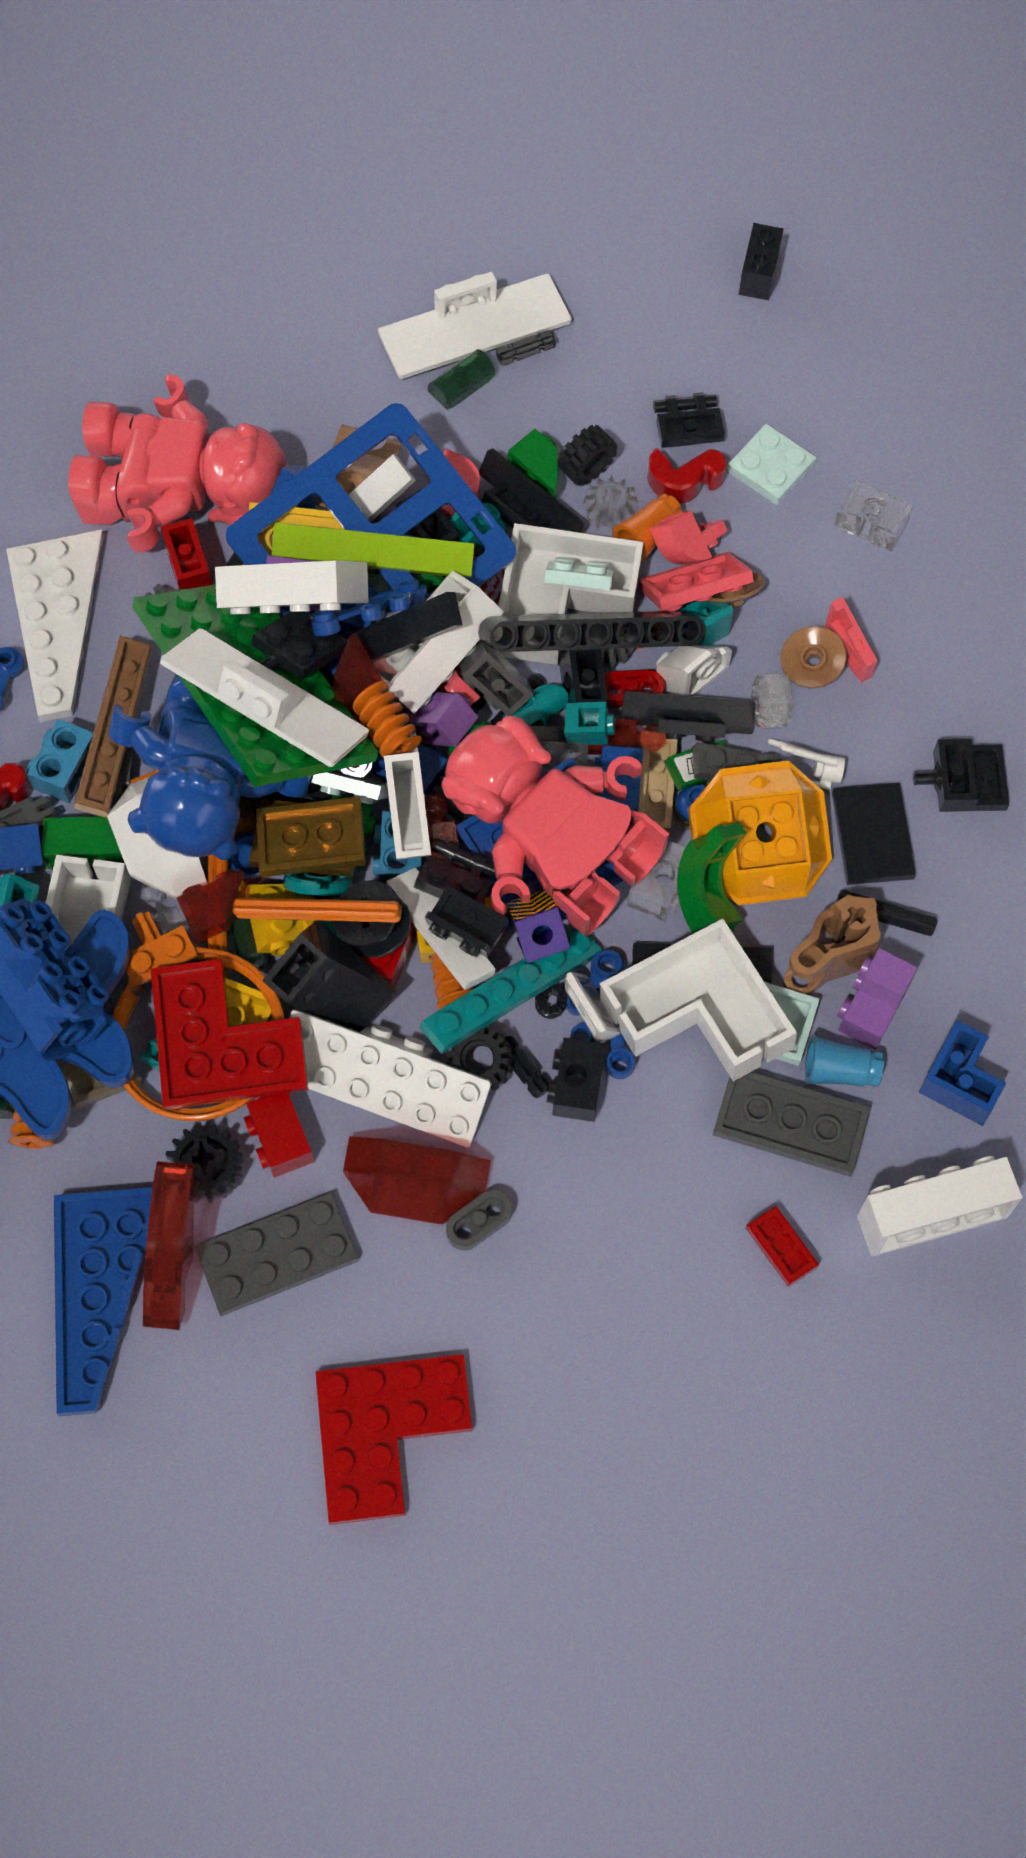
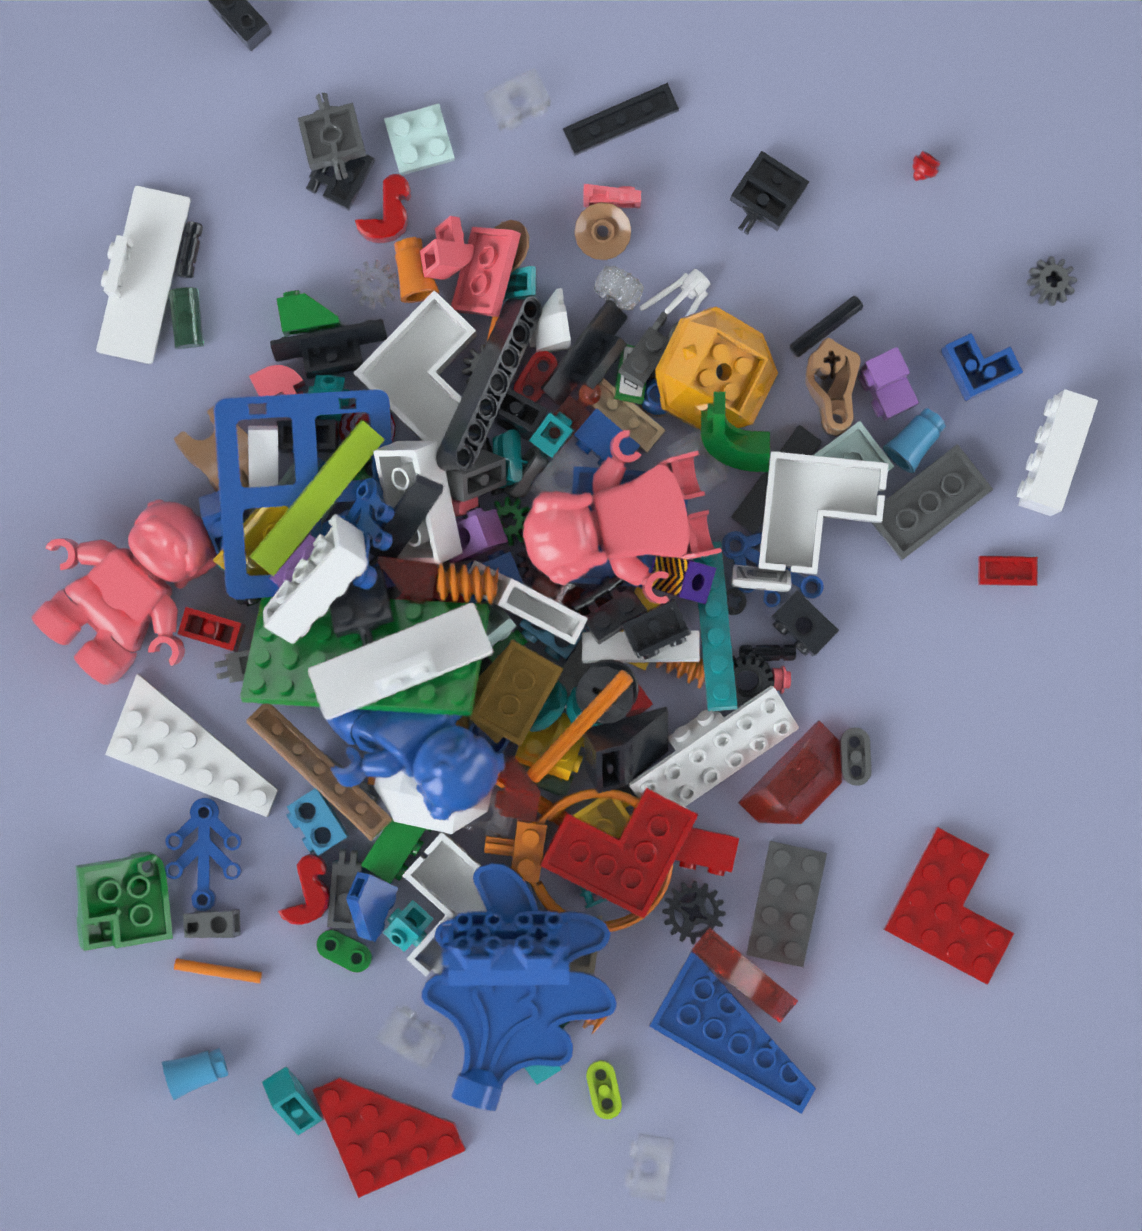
camera: 50 degrees left, 20 degrees up
(505, 1094) = (781, 678): none -> coral plate
(566, 572) = (428, 355): light aqua plate -> none
(587, 455) = (325, 274): black tyre -> none
(715, 386) = (331, 136): none -> dark grey plate
(873, 833) = (762, 290): black tile -> none
(928, 614) = (620, 119): none -> black tile

